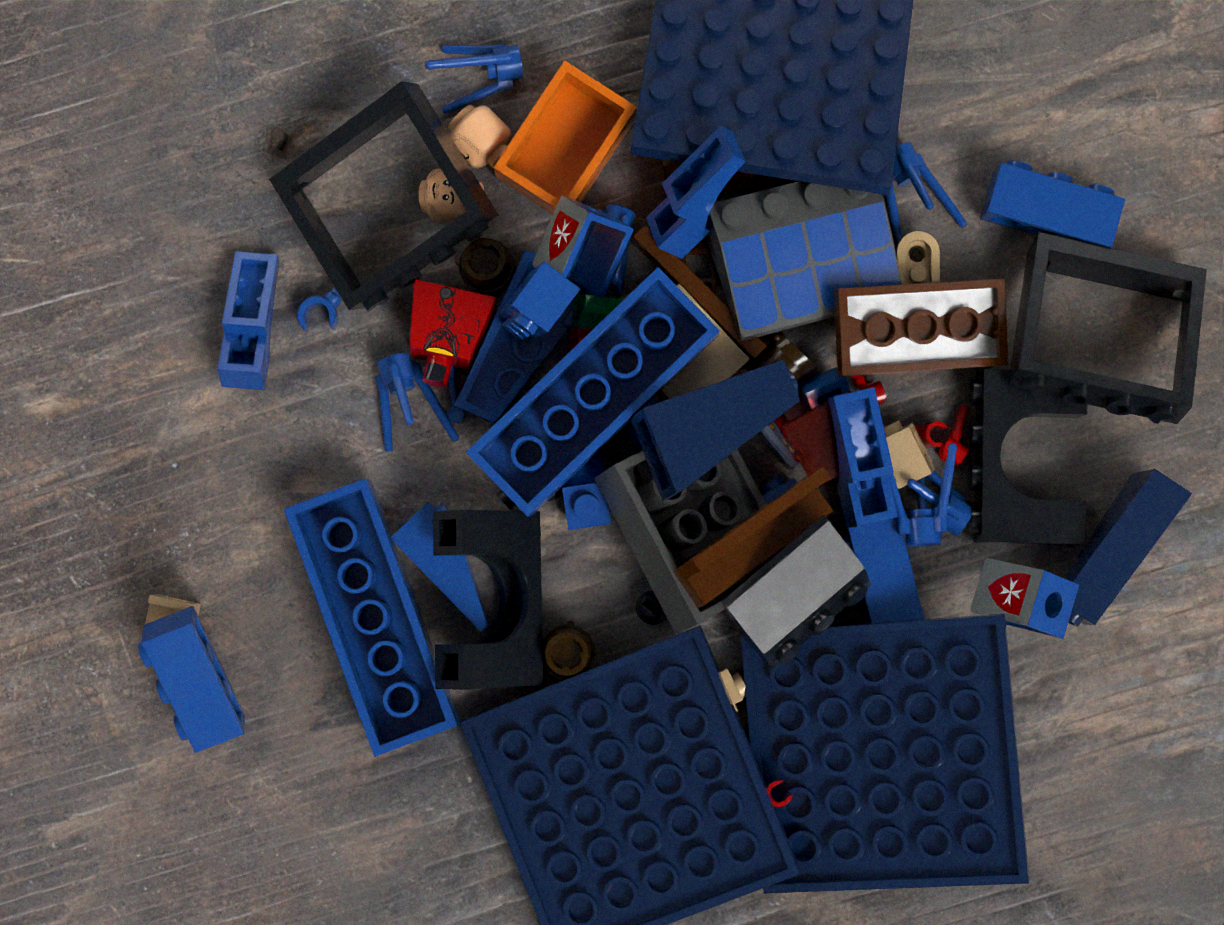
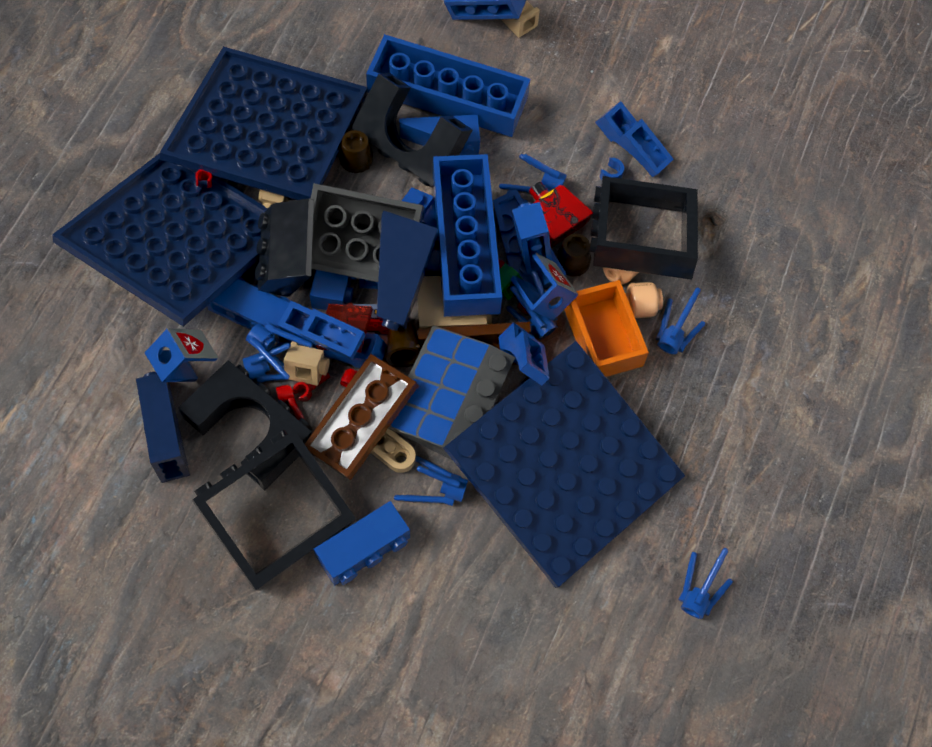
camera: 130 degrees right, 20 degrees down
(754, 539) = (329, 245): reddish brown fence -> none

